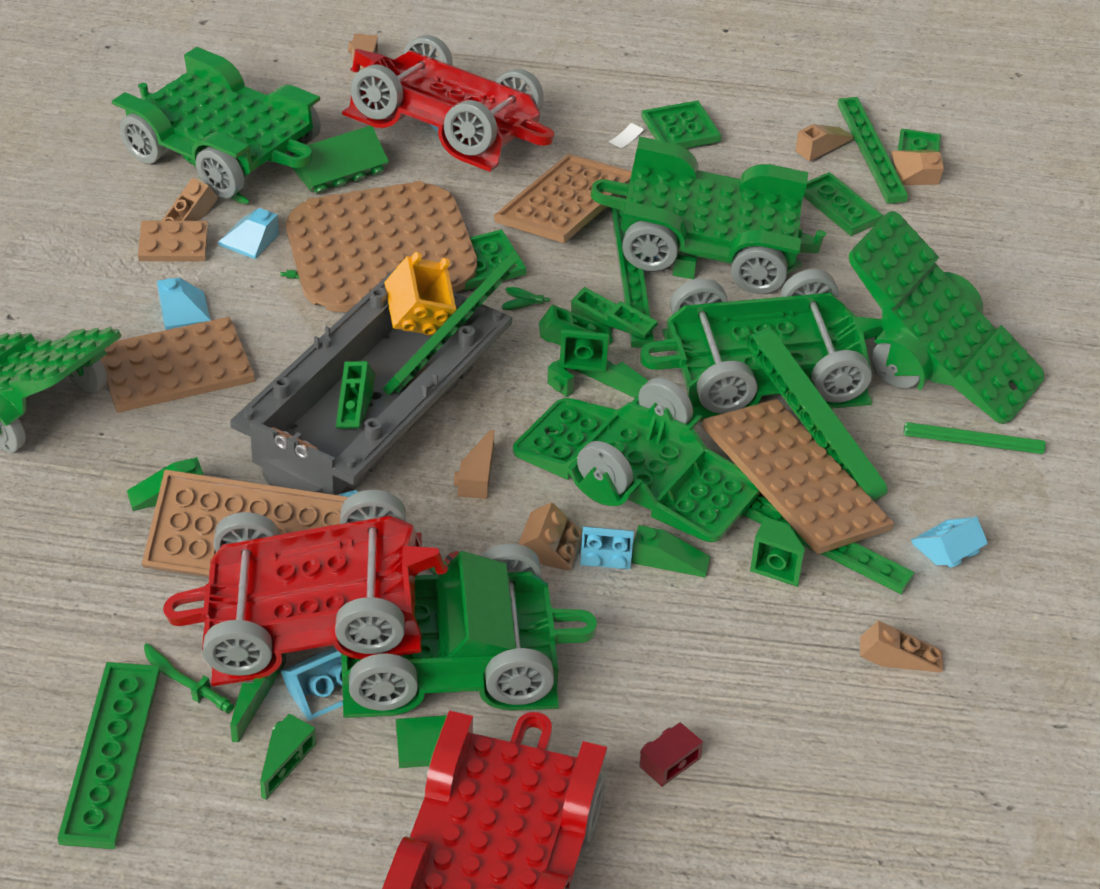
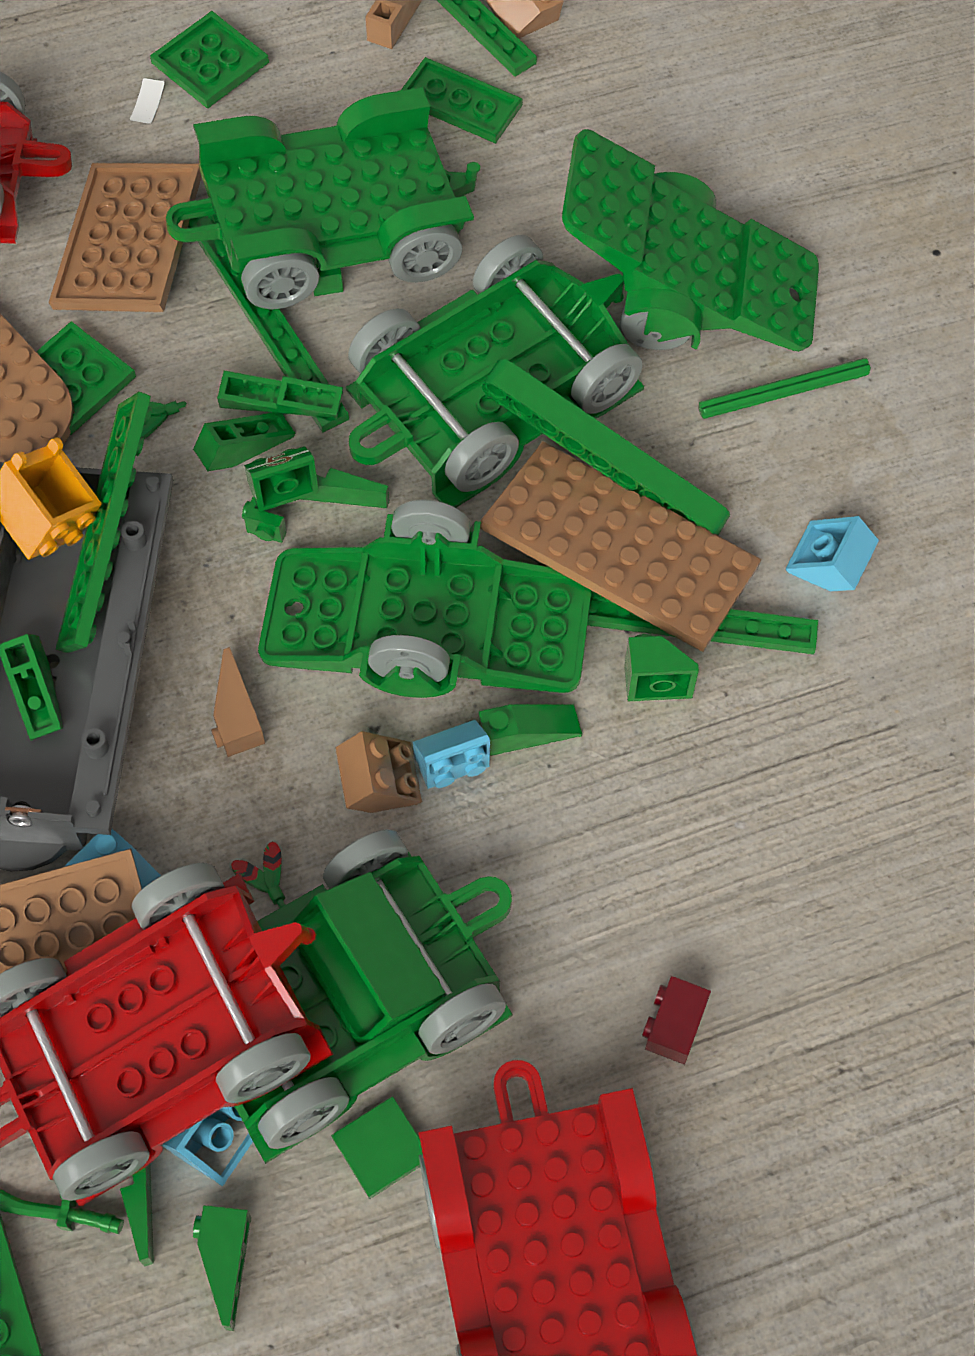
camera: 25 degrees left, 20 degrees up
(897, 649) = (853, 739): medium nougat slope -> none

